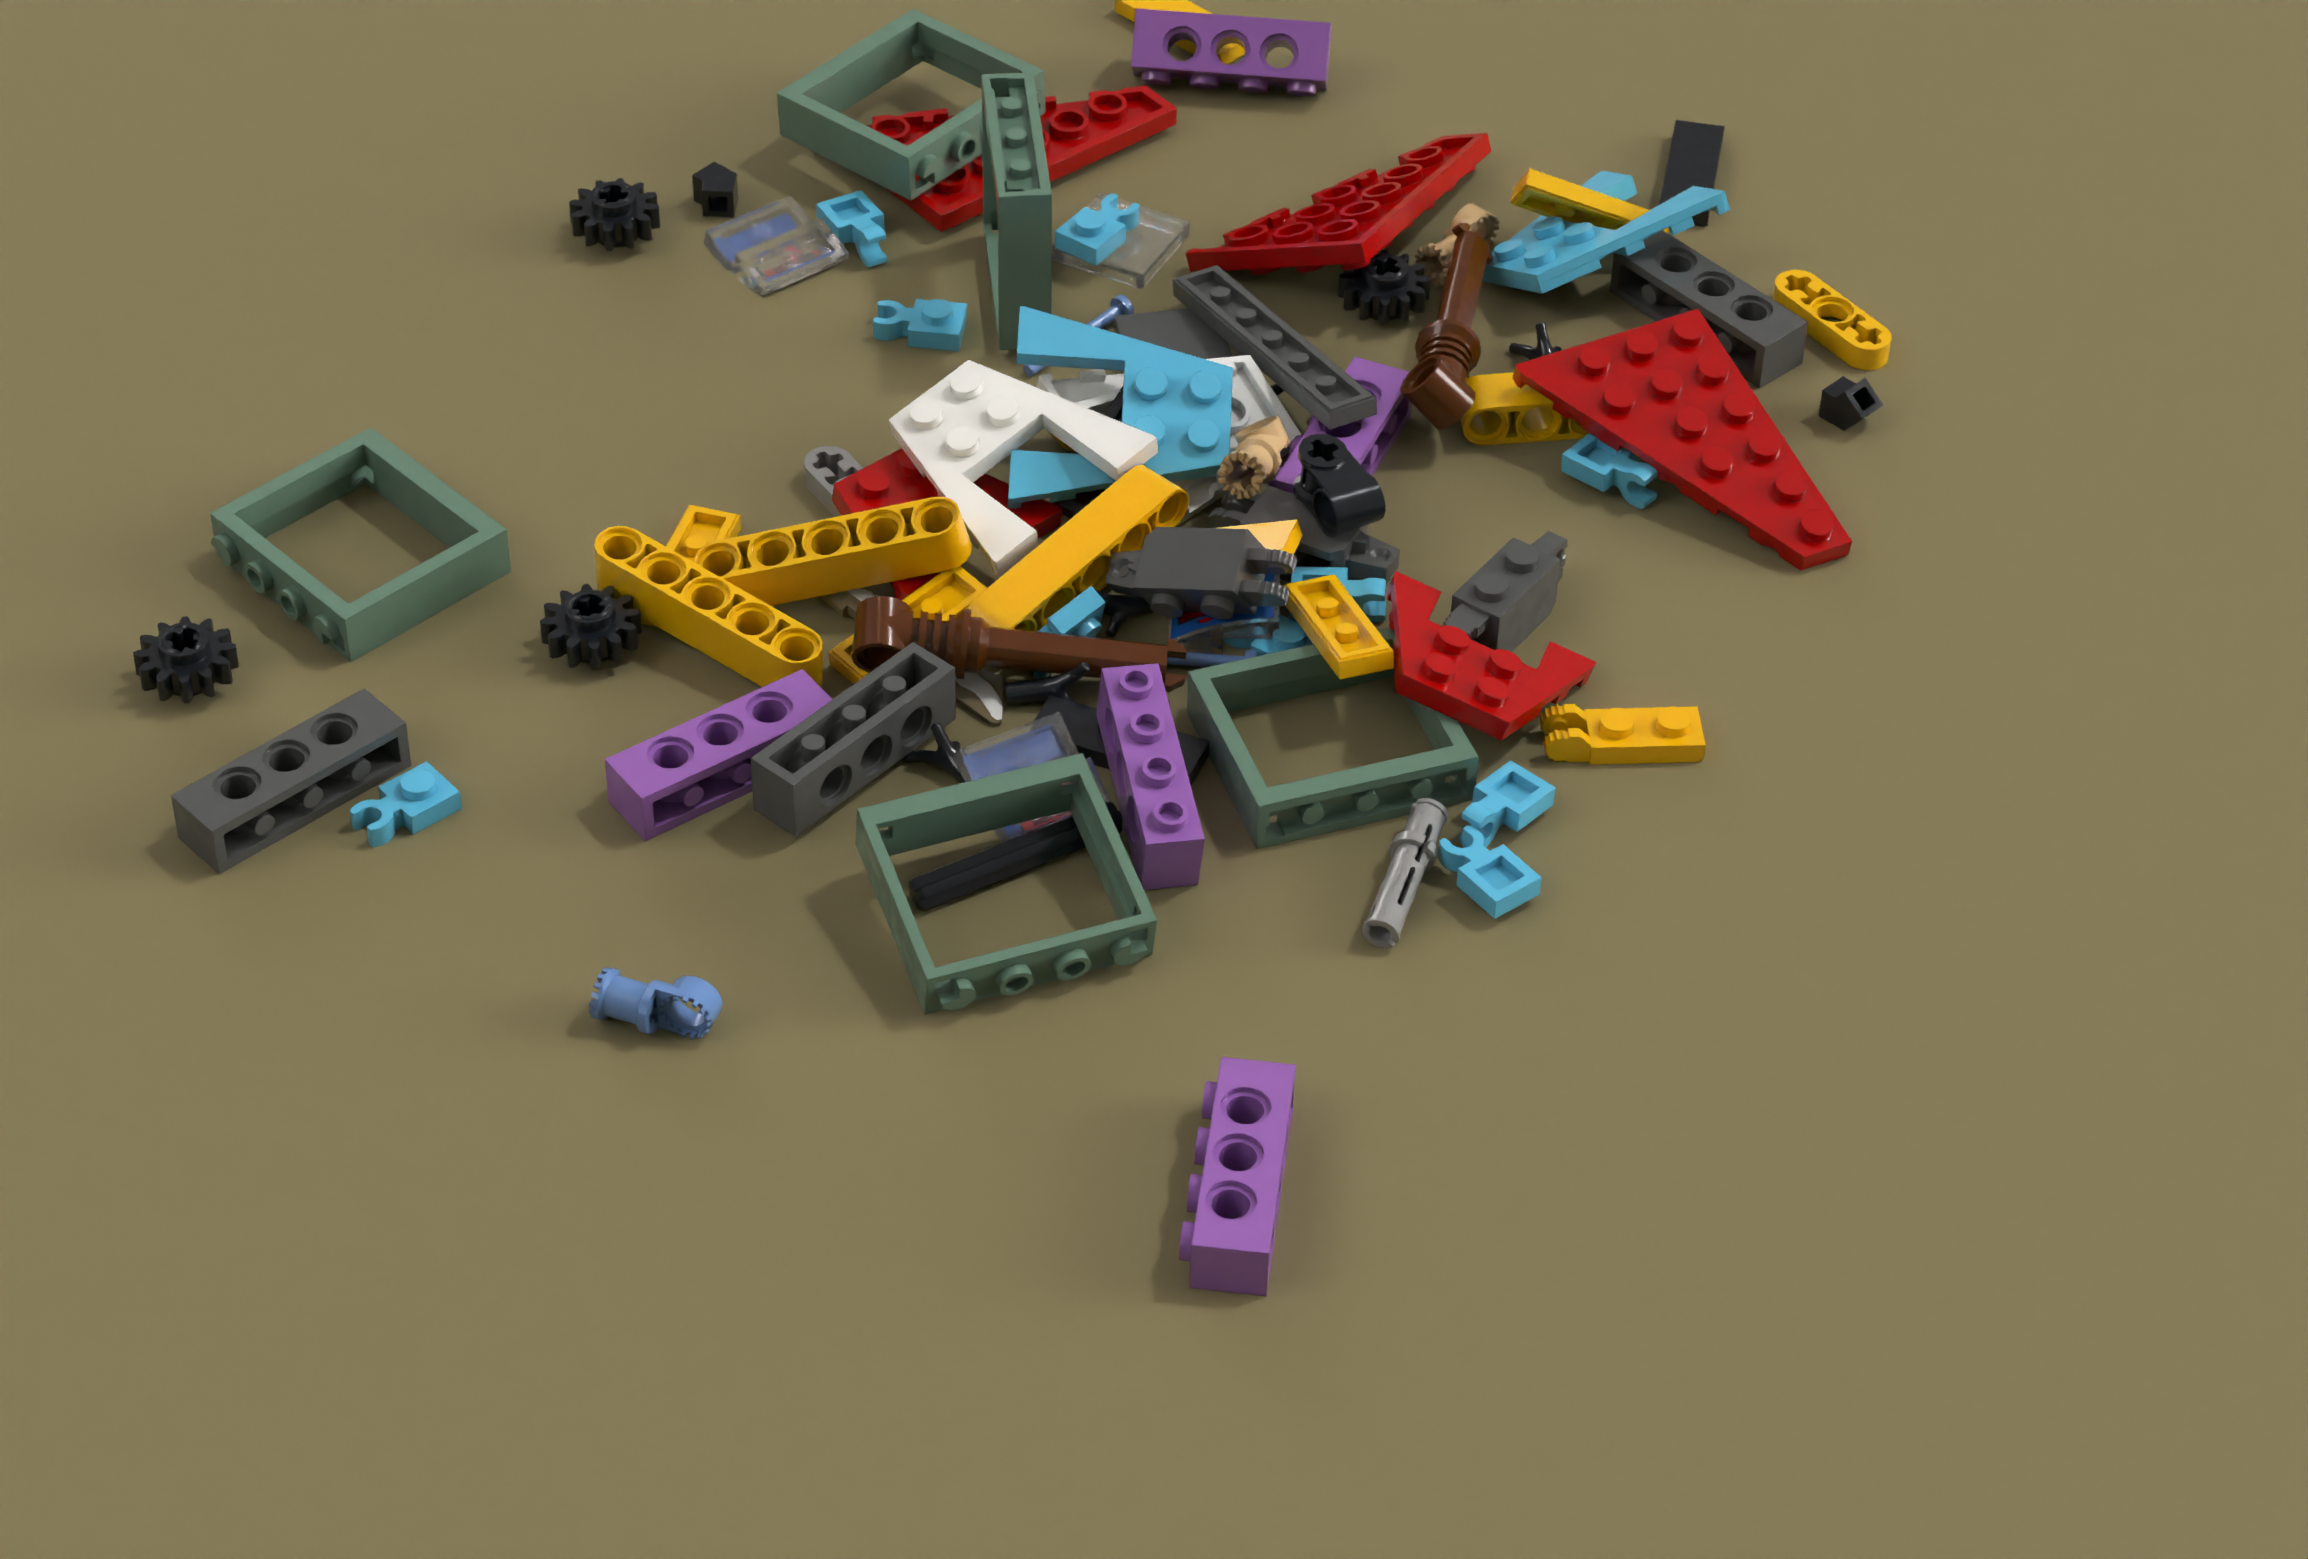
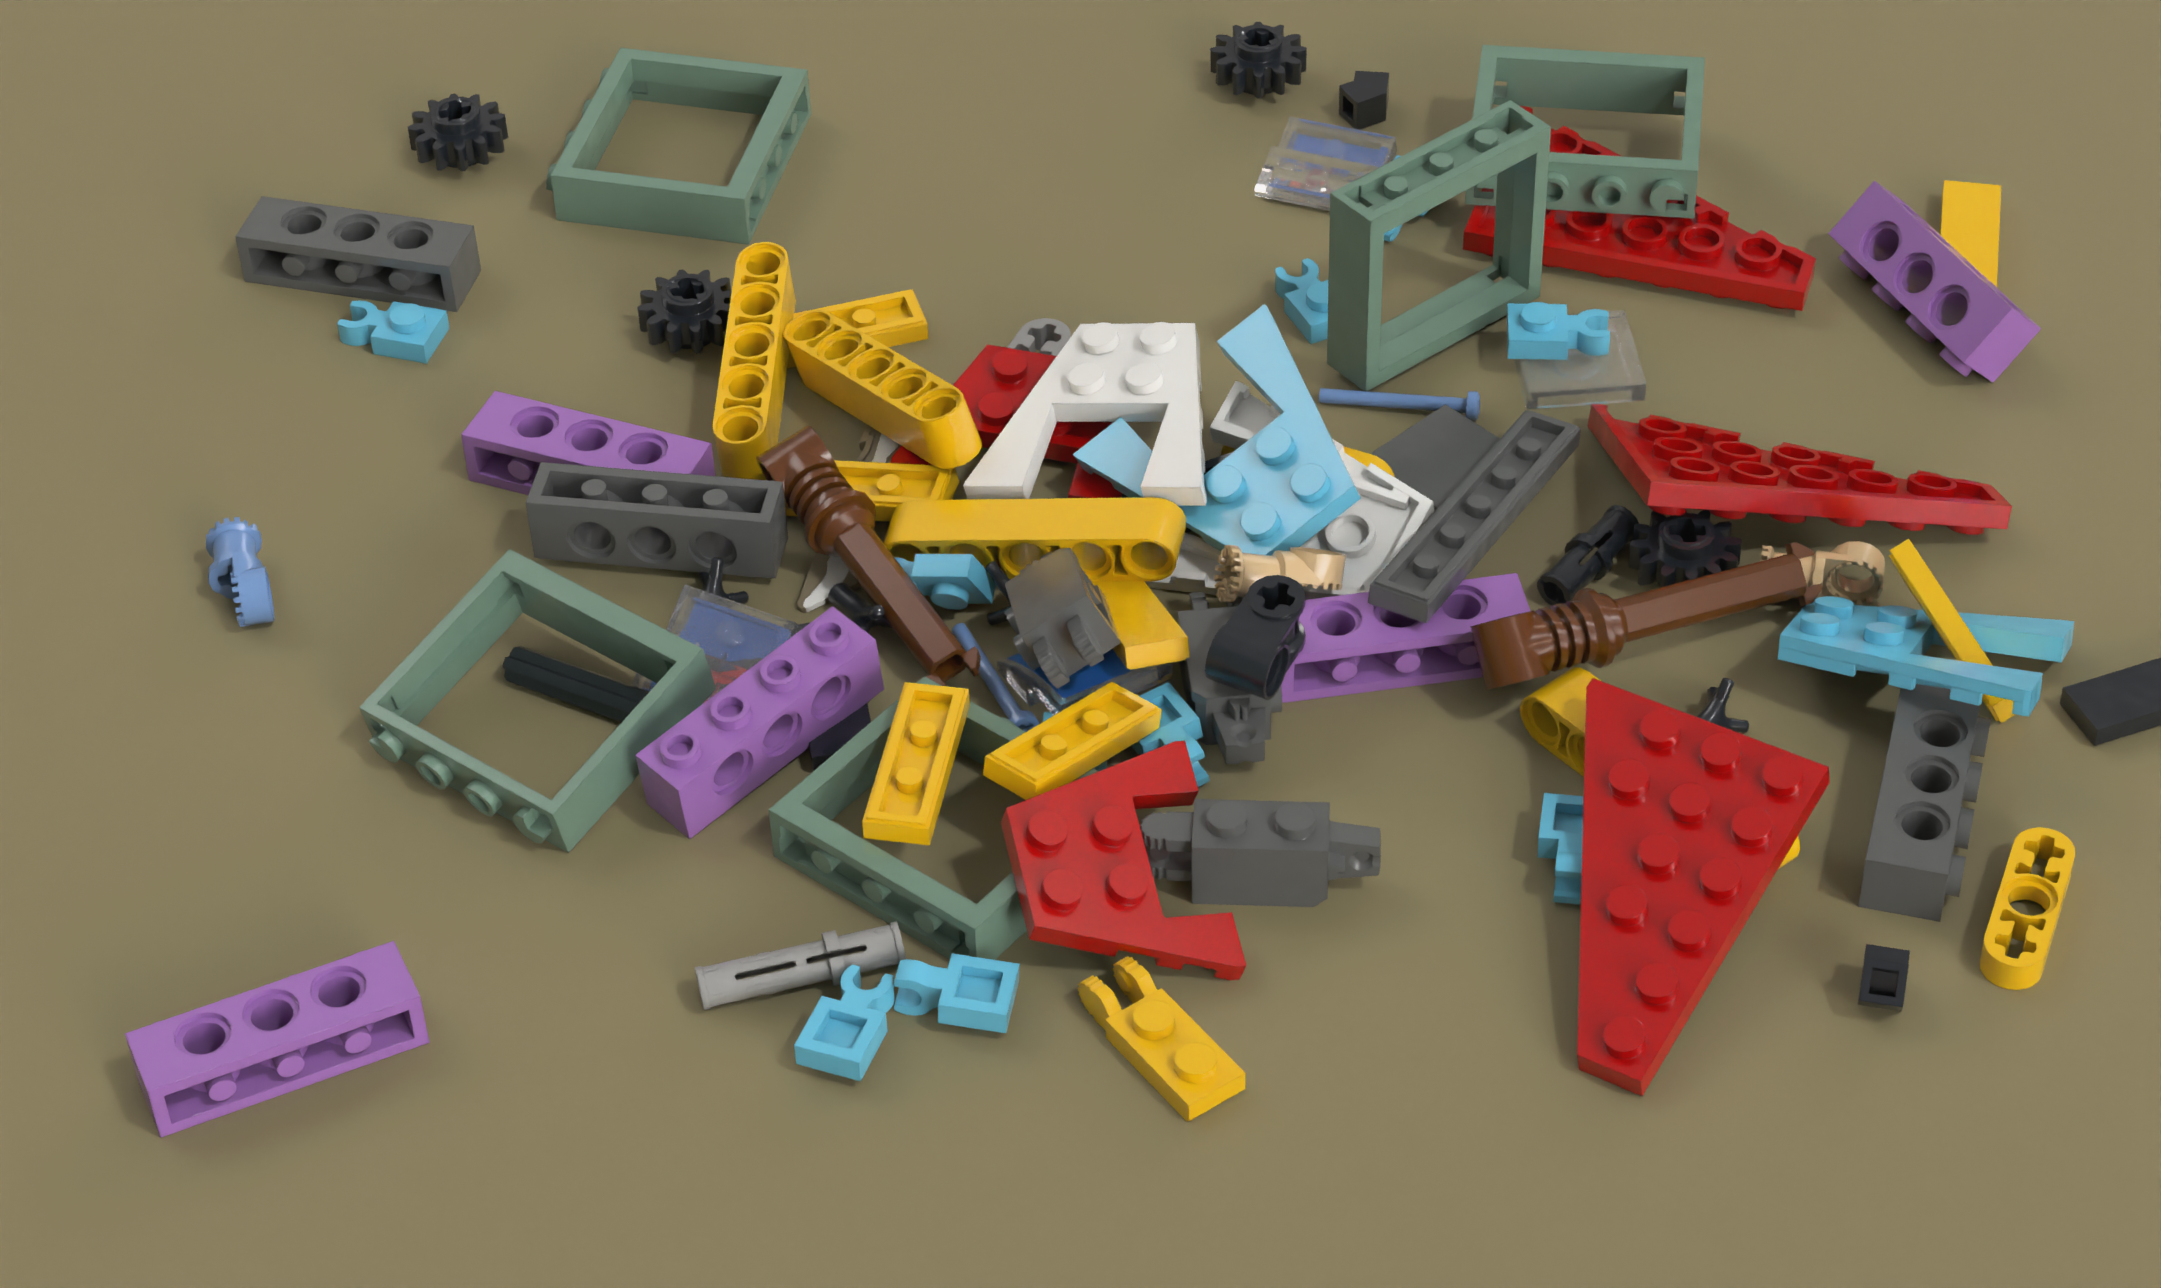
camera: 60 degrees right, 0 degrees up
(1289, 709) = (916, 764): none -> yellow tile
(1337, 326) = (1607, 535): none -> black pin

